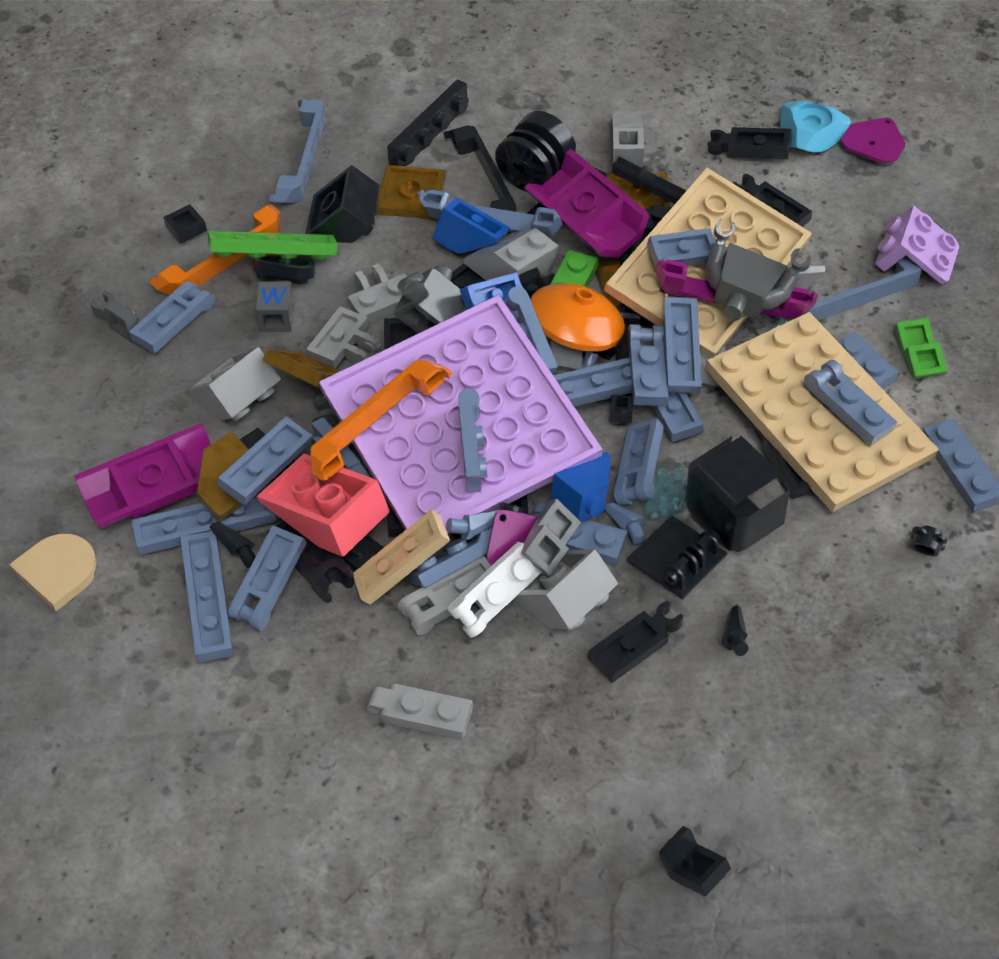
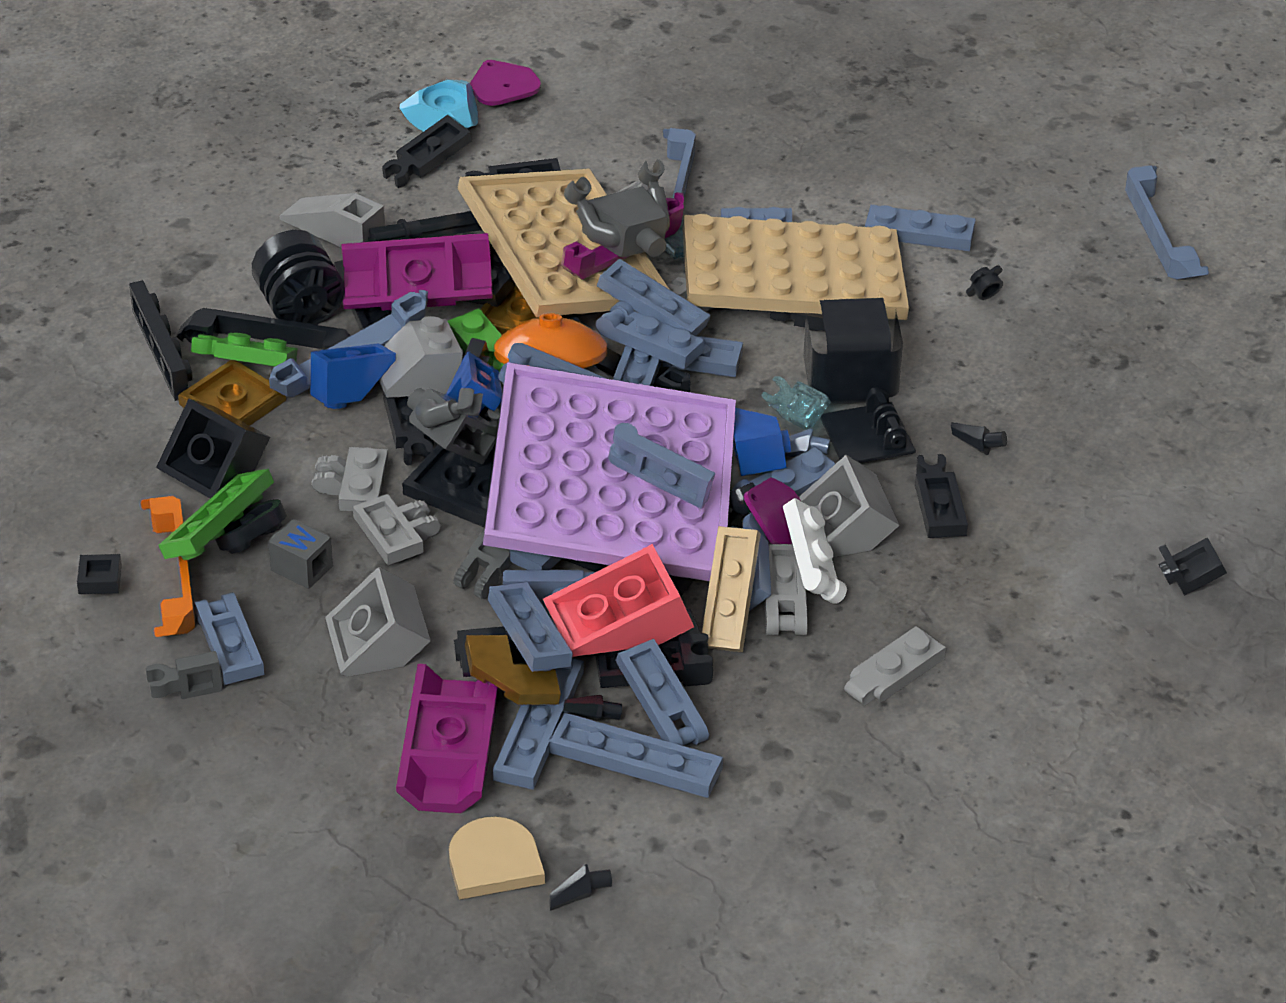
camera: 60 degrees left, 10 degrees down
(59, 632) = (579, 886): none -> black bar
(292, 188) = (40, 413): sand blue piece -> none
(299, 365) = (428, 556): pearl gold tile -> none
(420, 375) = (585, 565): orange piece -> none
(456, 172) = (240, 348): none -> bright green plate
(470, 524) = (738, 516): sand blue bar -> none
(548, 536) = (795, 482): slope -> none
(638, 462) = (749, 396): sand blue plate -> none
(684, 247) = (550, 237): sand blue plate -> none
(850, 402) = (815, 239): sand blue plate -> none
(919, 348) = (765, 185): bright green slope -> none
(922, 241) = (654, 122): lavender bracket -> none

